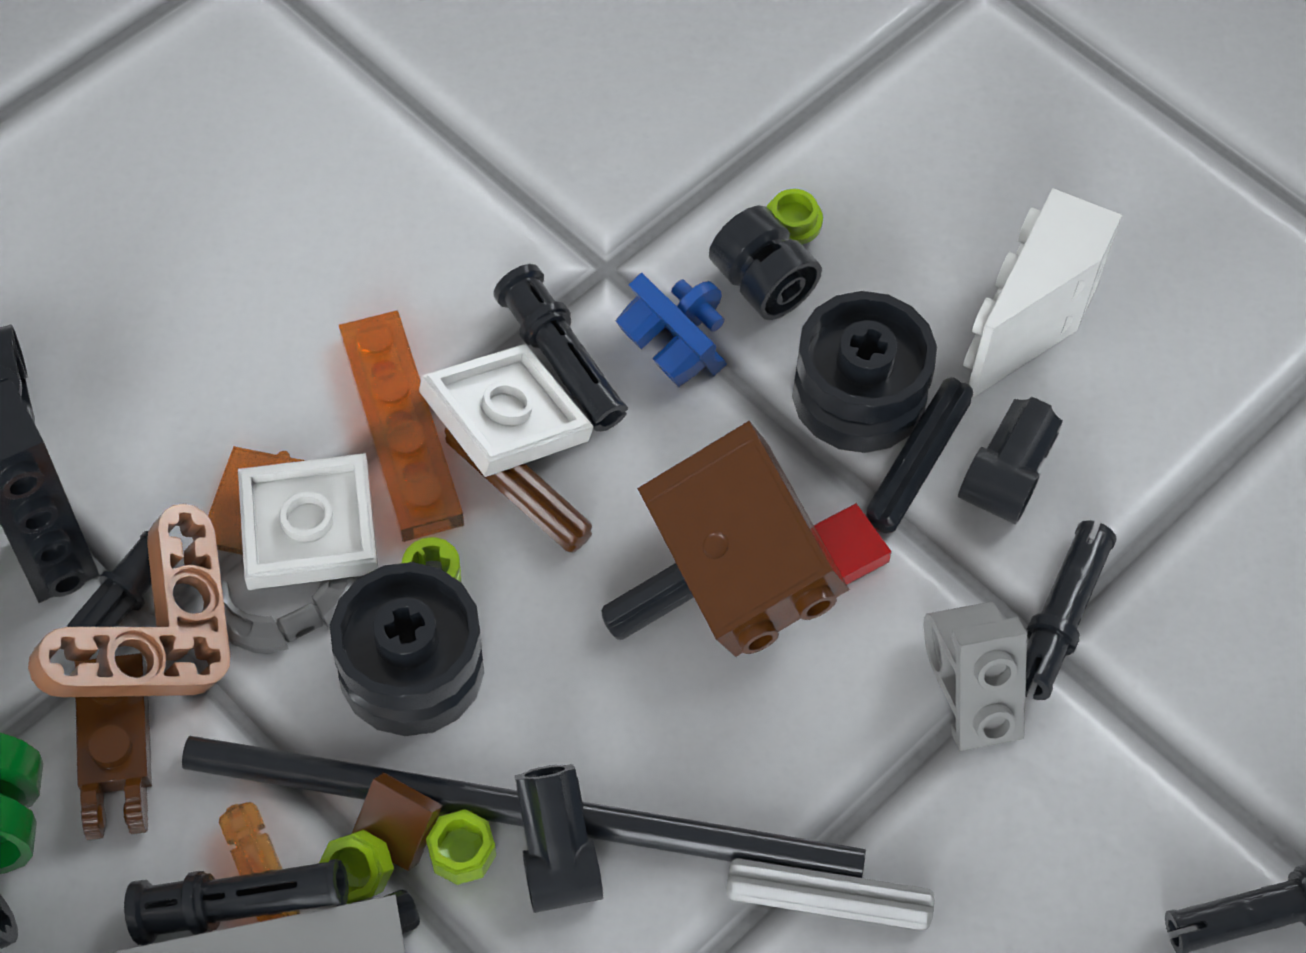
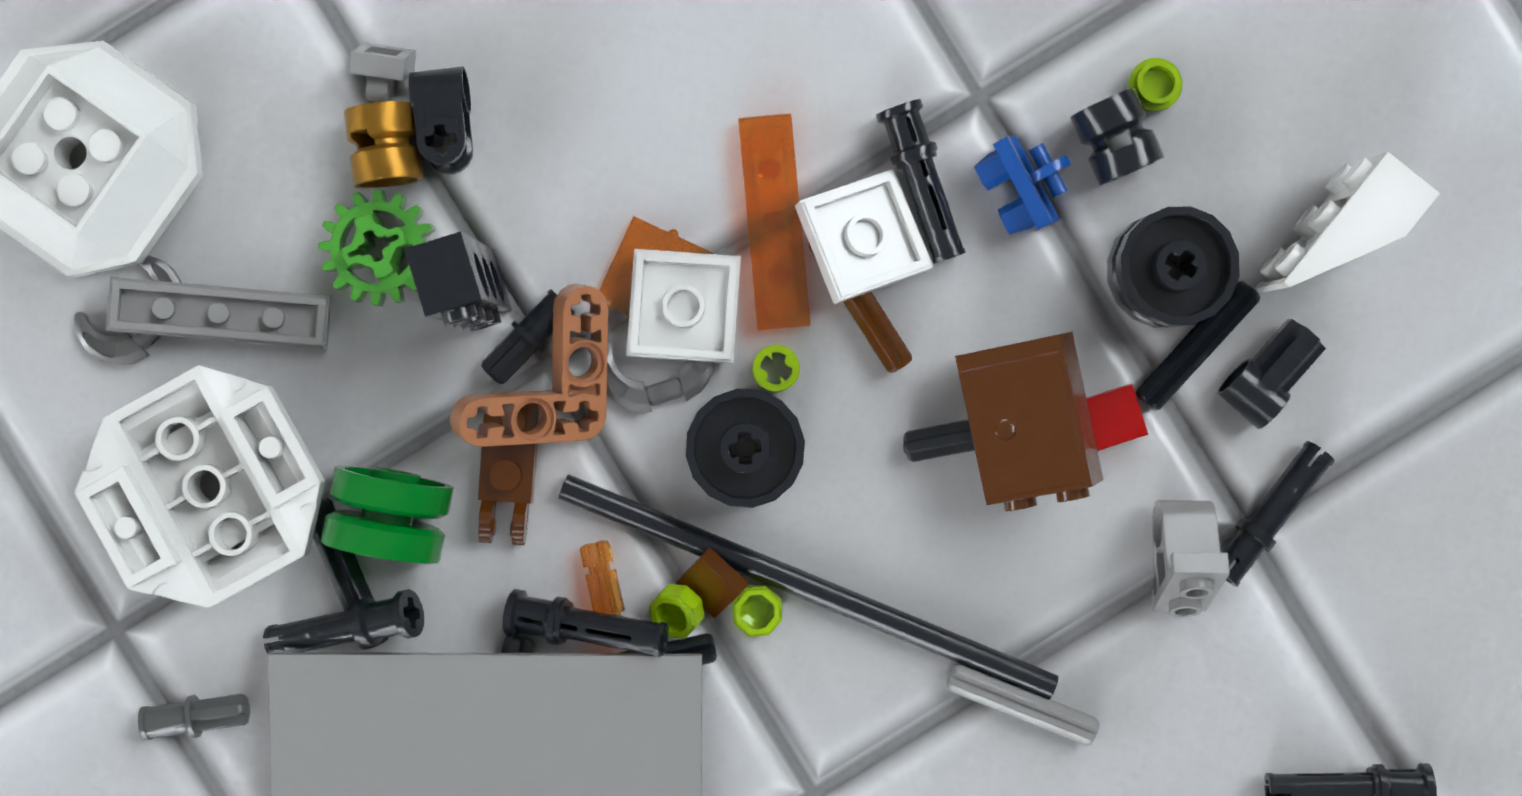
camera: 10 degrees right, 30 degrees up
(559, 856) = (829, 638): black piece -> none

